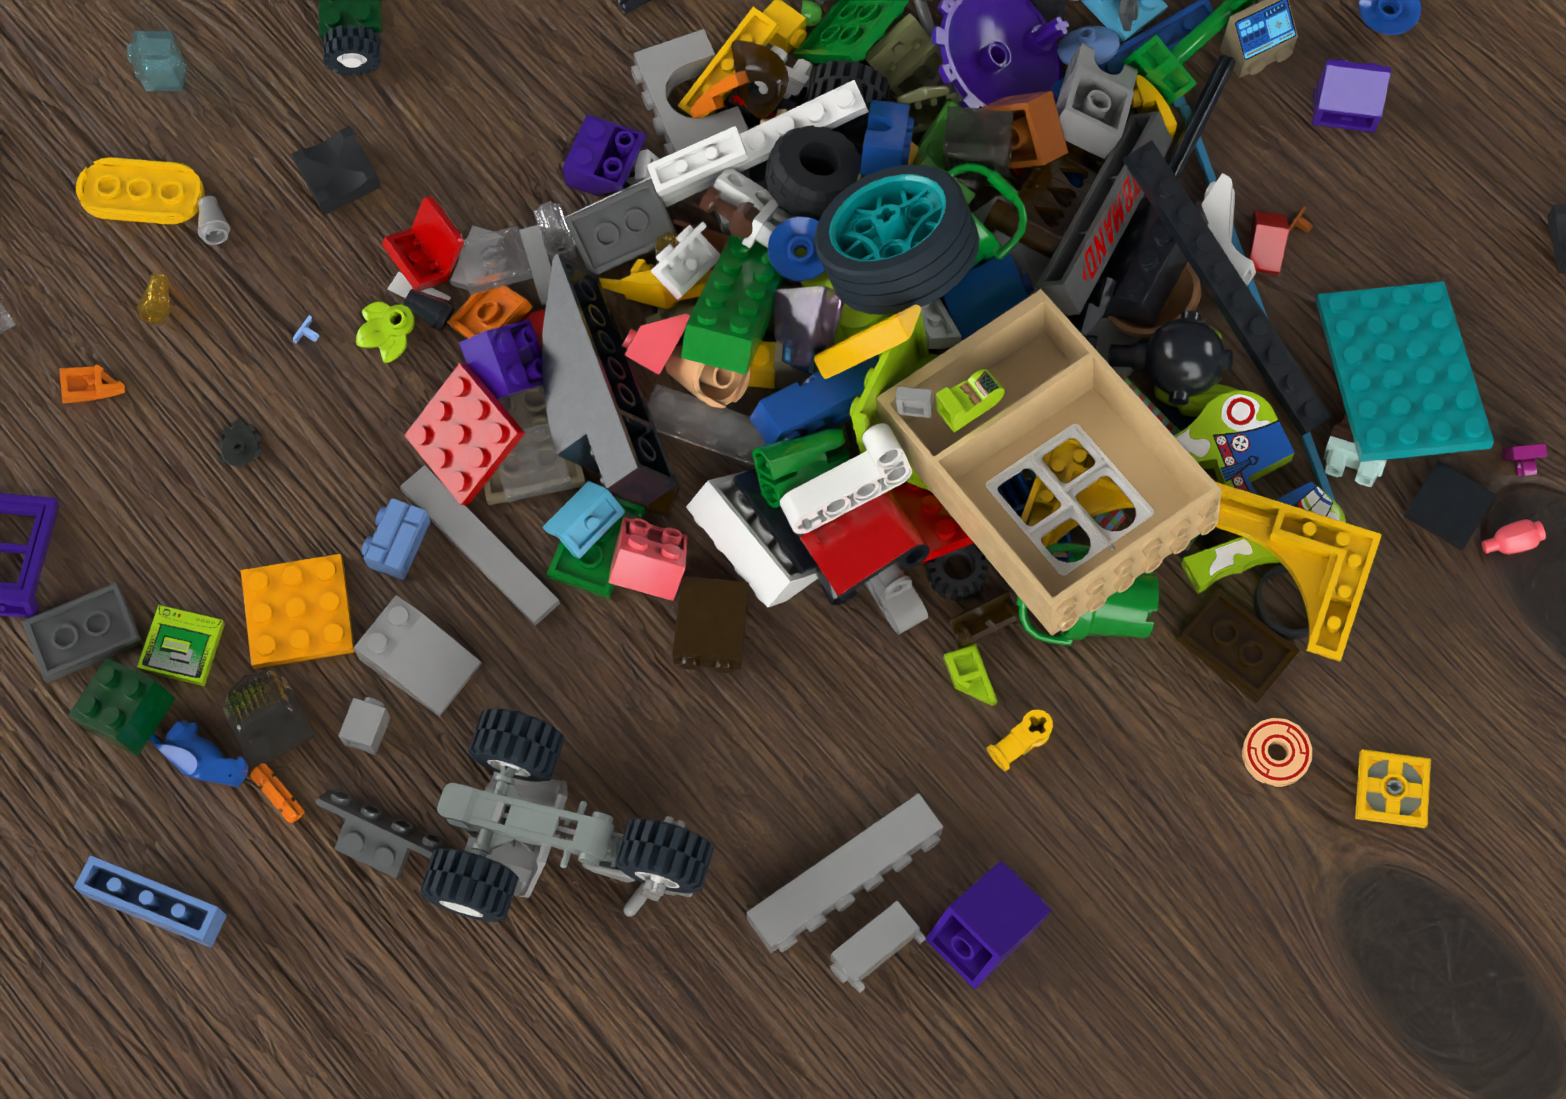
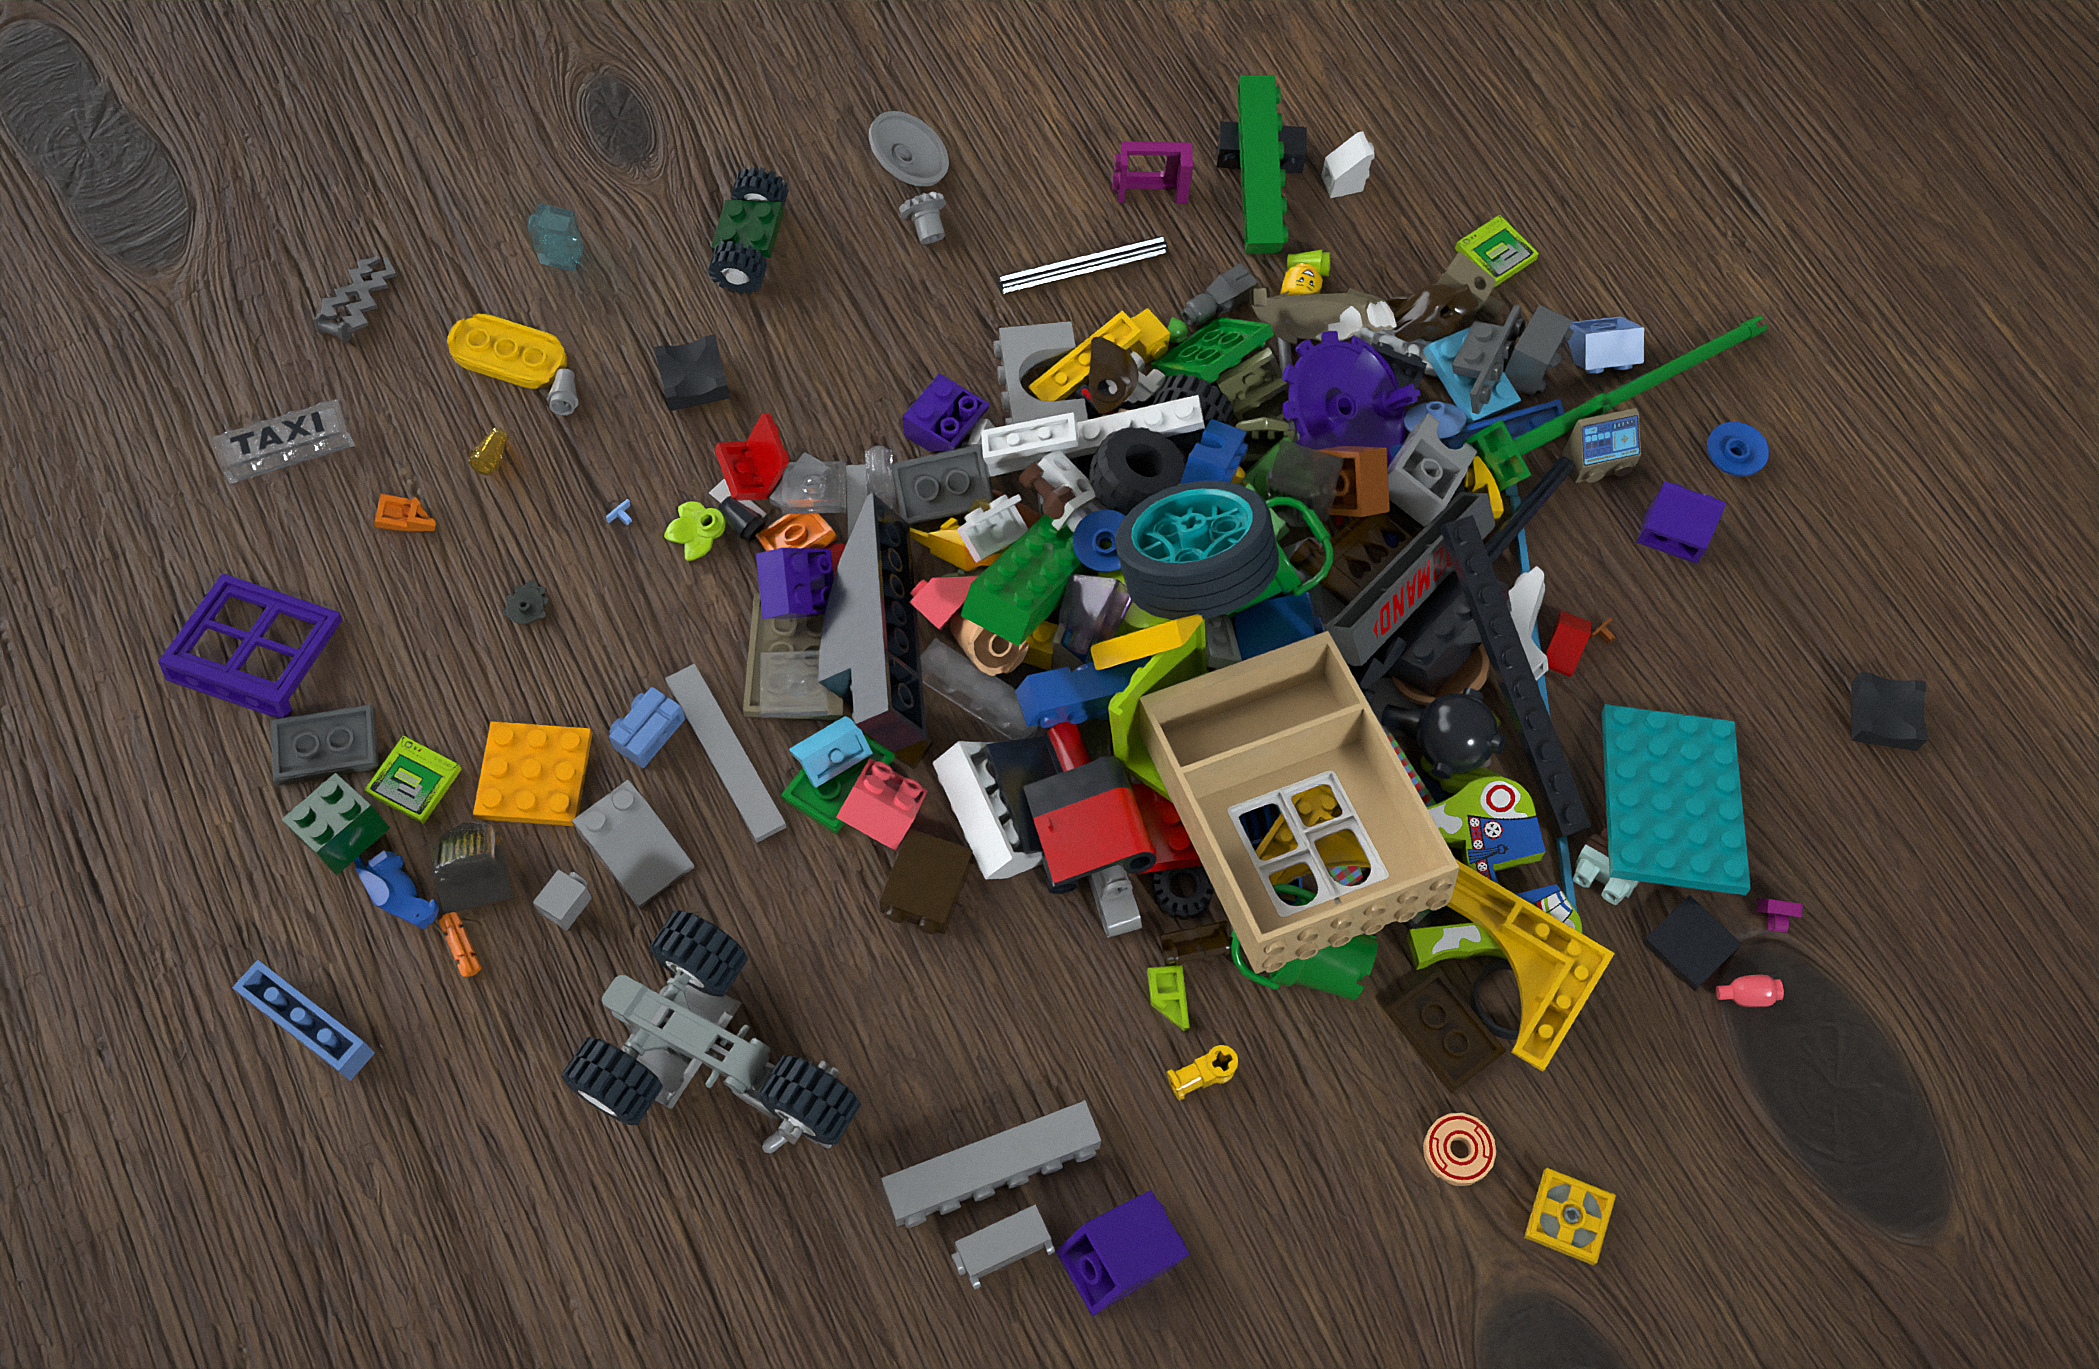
camera: 10 degrees right, 5 degrees down
(376, 837) = (541, 1011): dark grey bracket -> none
(464, 434) = (738, 642): plate -> none
(712, 100) = (1062, 384): orange slope -> none
(796, 461) = (1048, 746): green piece -> none
(850, 483) = (1093, 776): white beam -> none
(914, 402) = (1174, 709): light grey tile -> none
(968, 399) = (1228, 719): lime leg -> none

